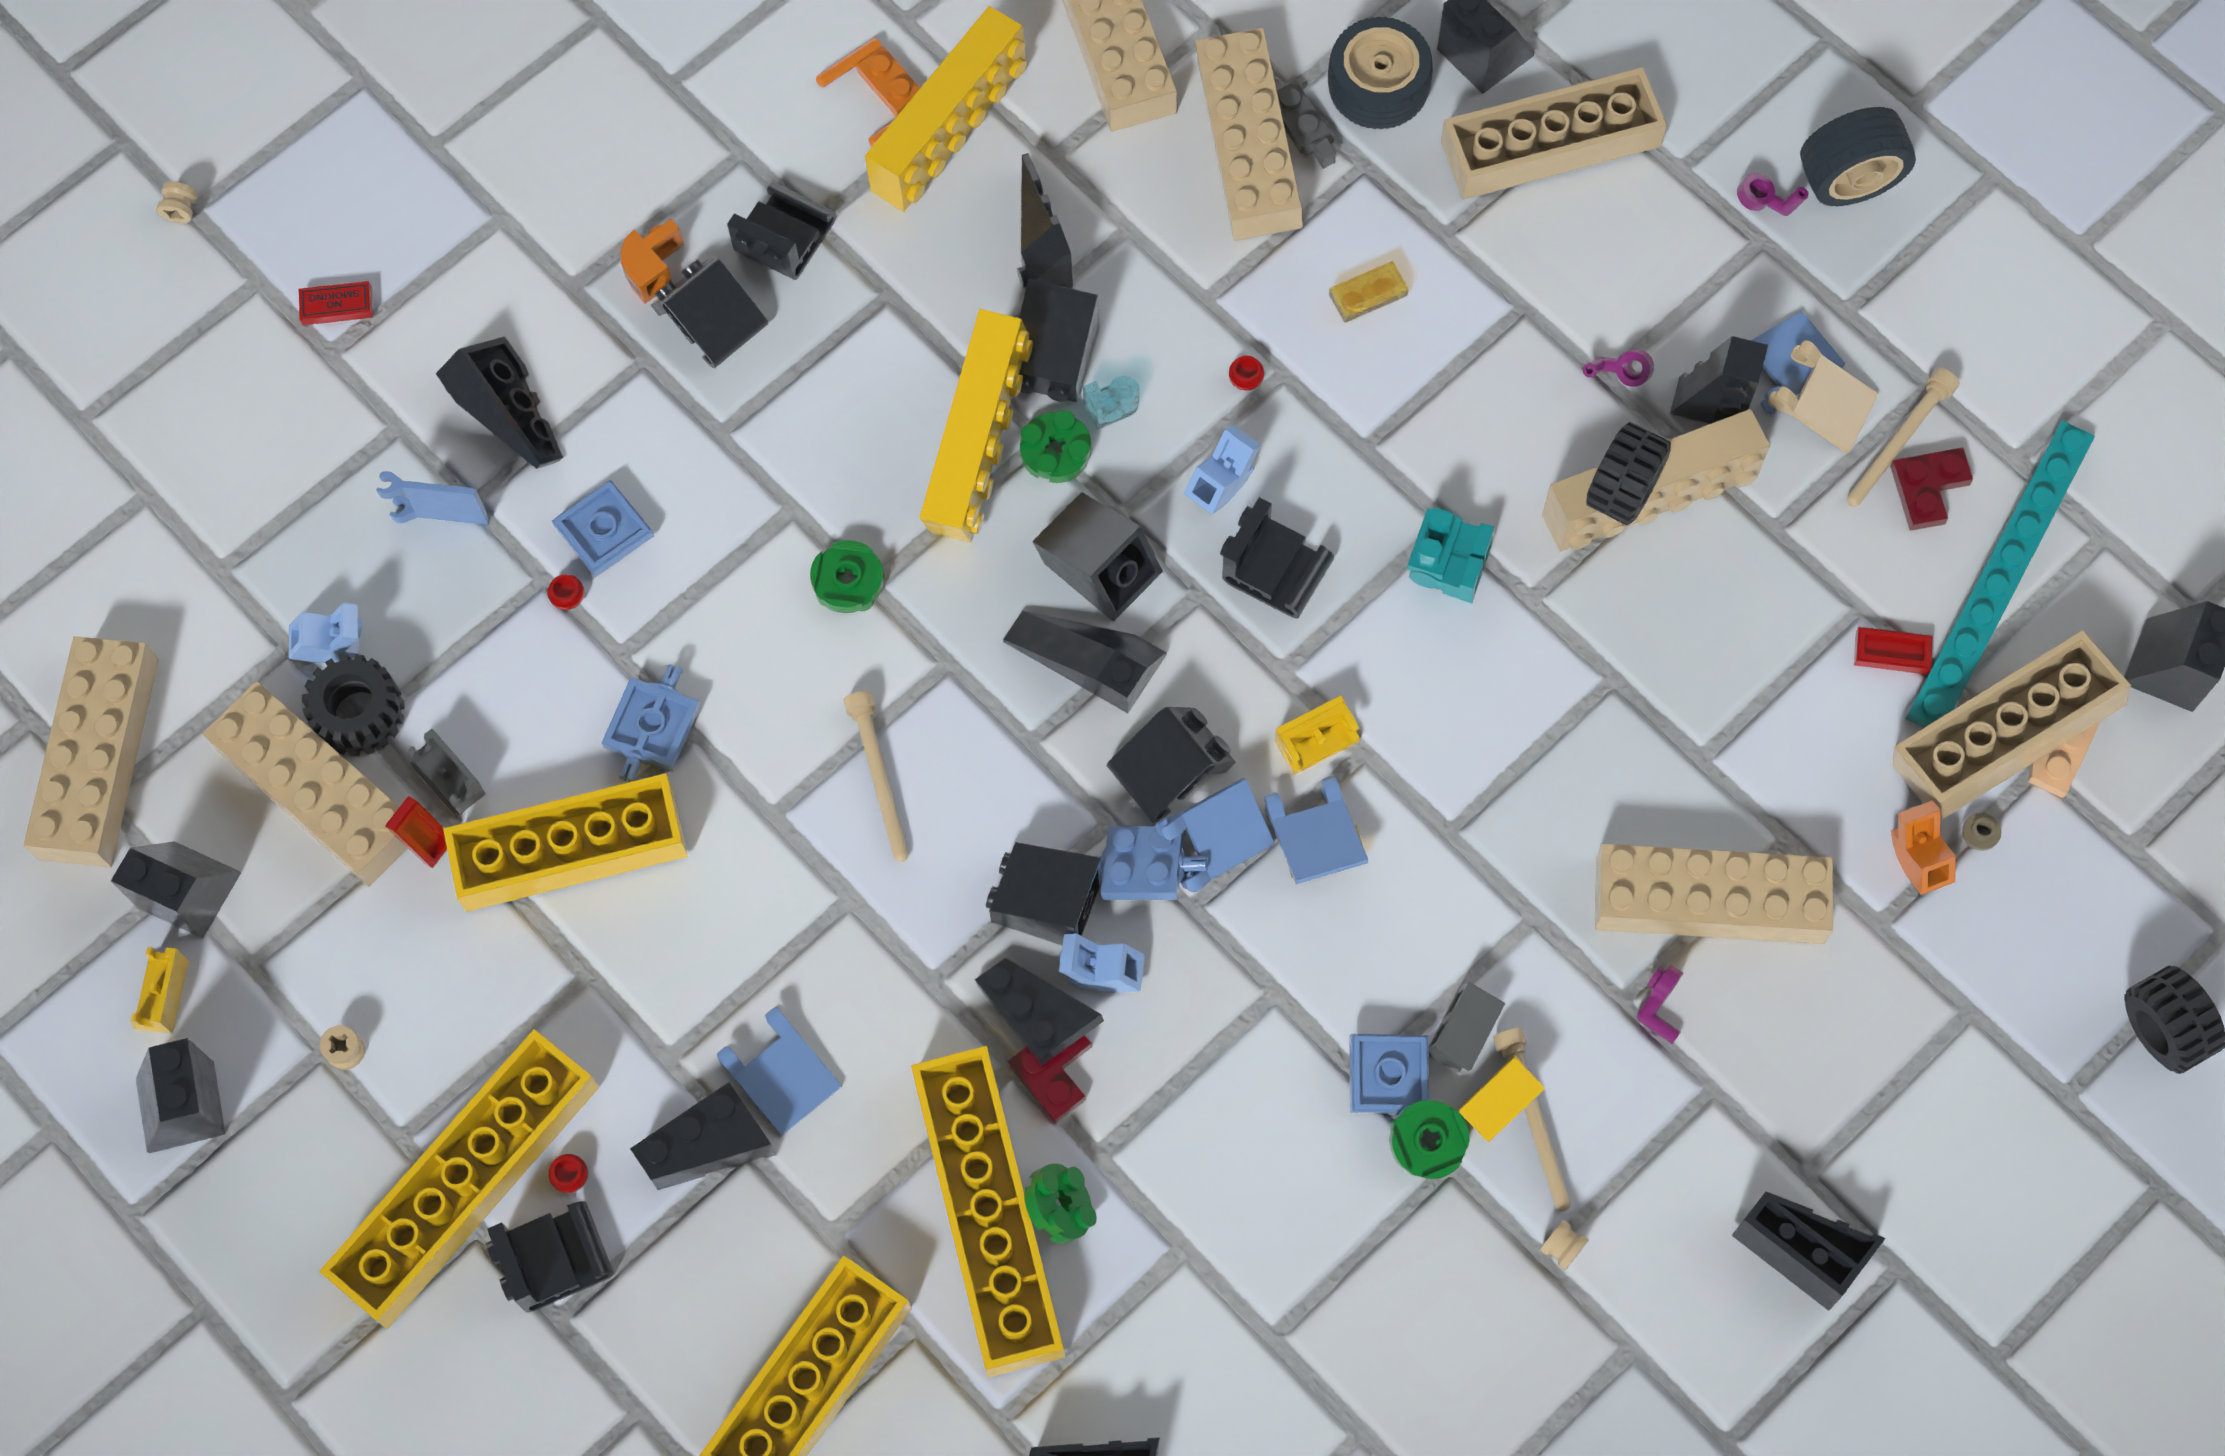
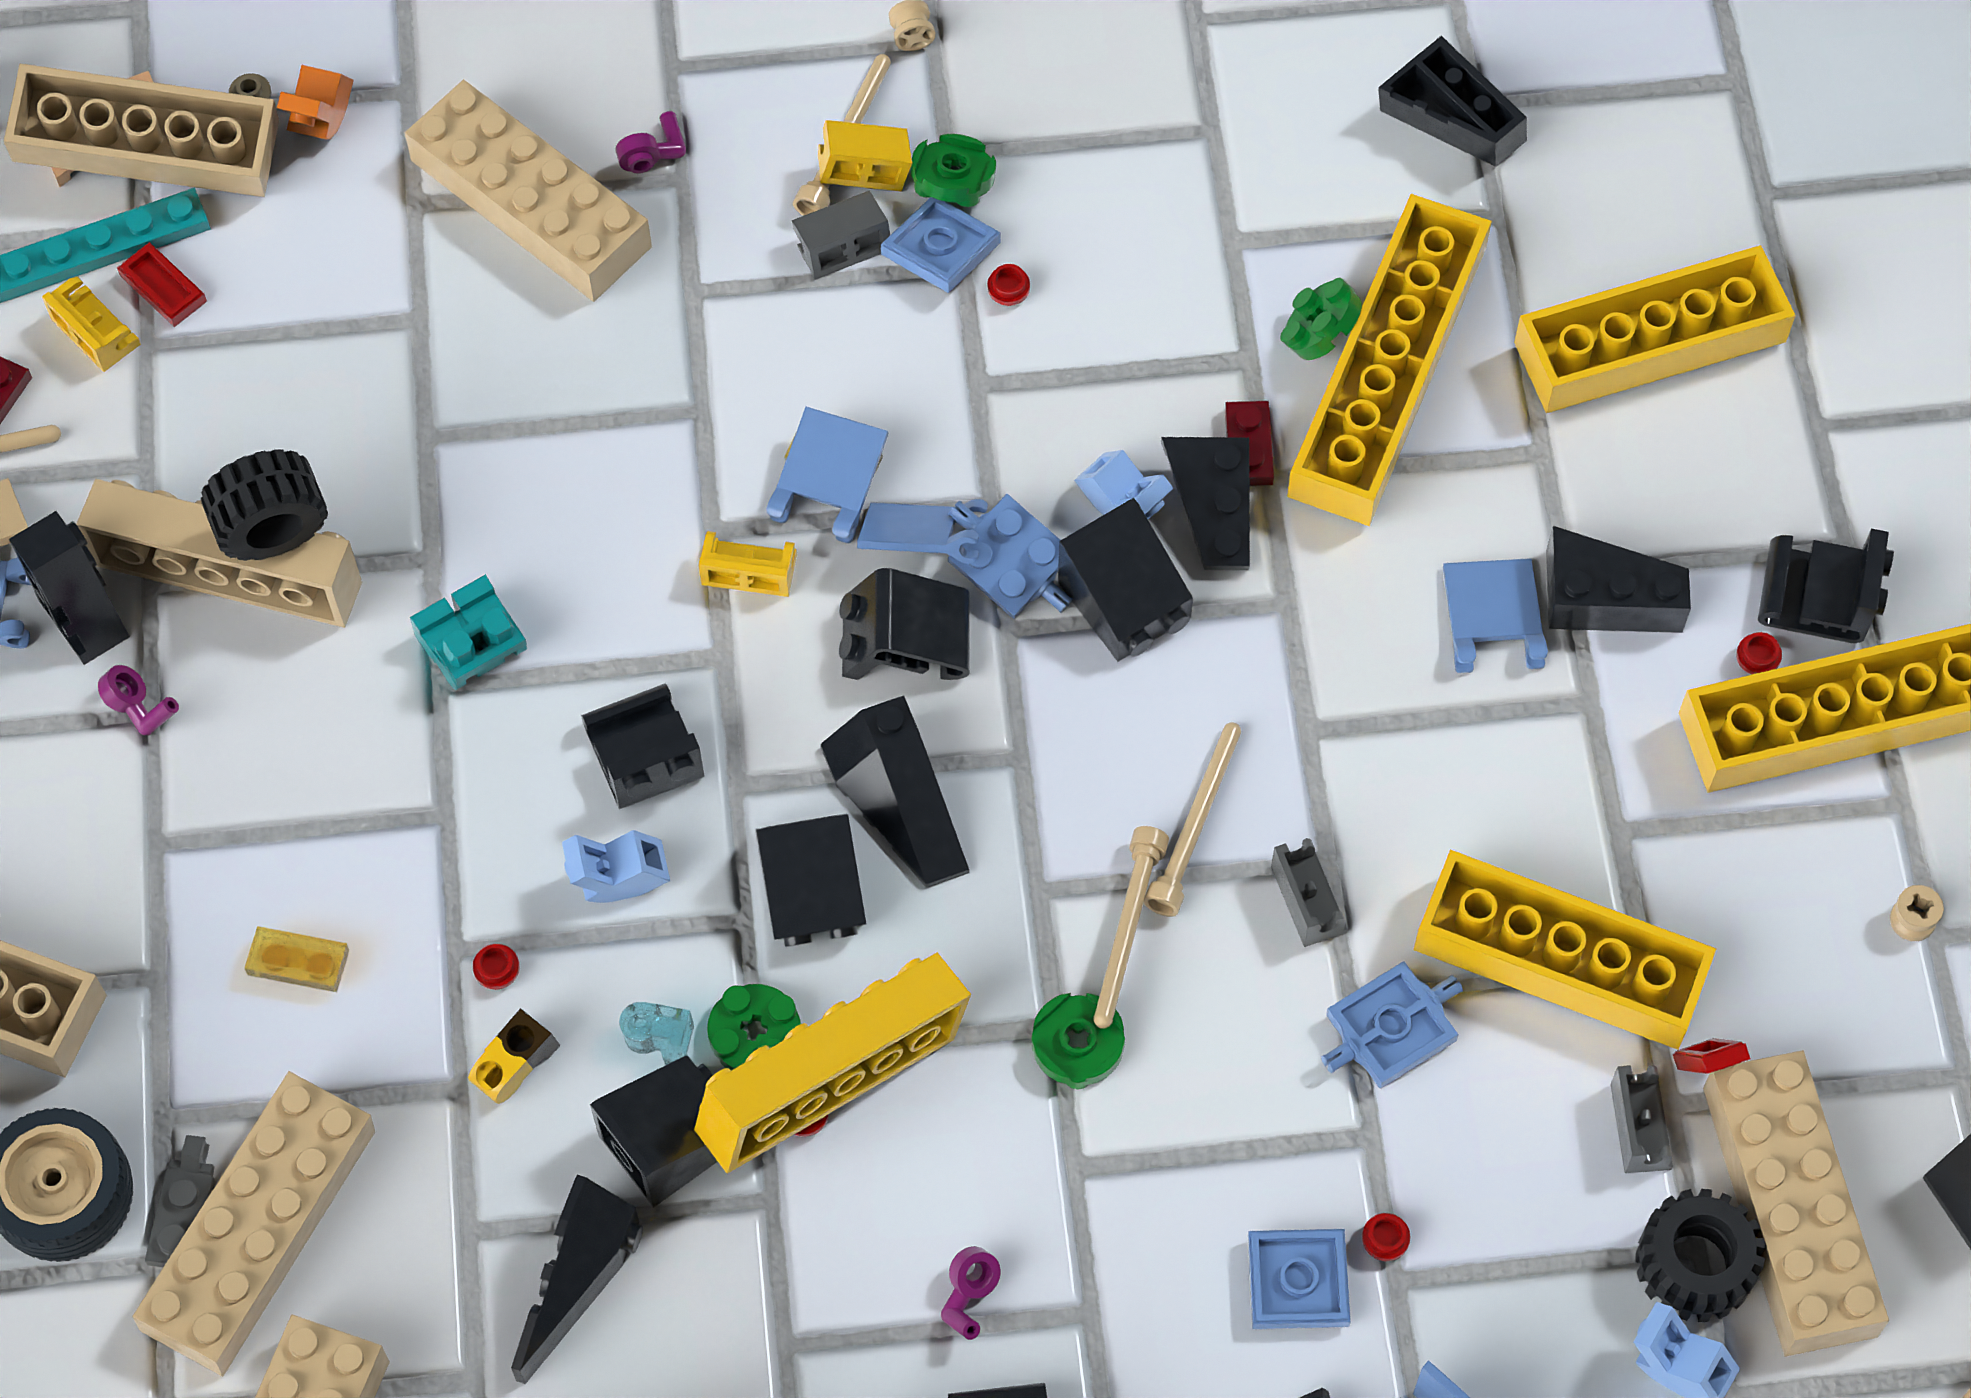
camera: 145 degrees left, 5 degrees down
(766, 772) = (1307, 893): none -> dark grey hinge
(805, 393) = (975, 1285): none -> magenta plate
(894, 727) = (1147, 848): none -> tan piece
(1185, 328) = (512, 1057): none -> leg
(1314, 1079) = (1008, 285): none -> red plate
(1907, 584) = (89, 323): none -> yellow hinge

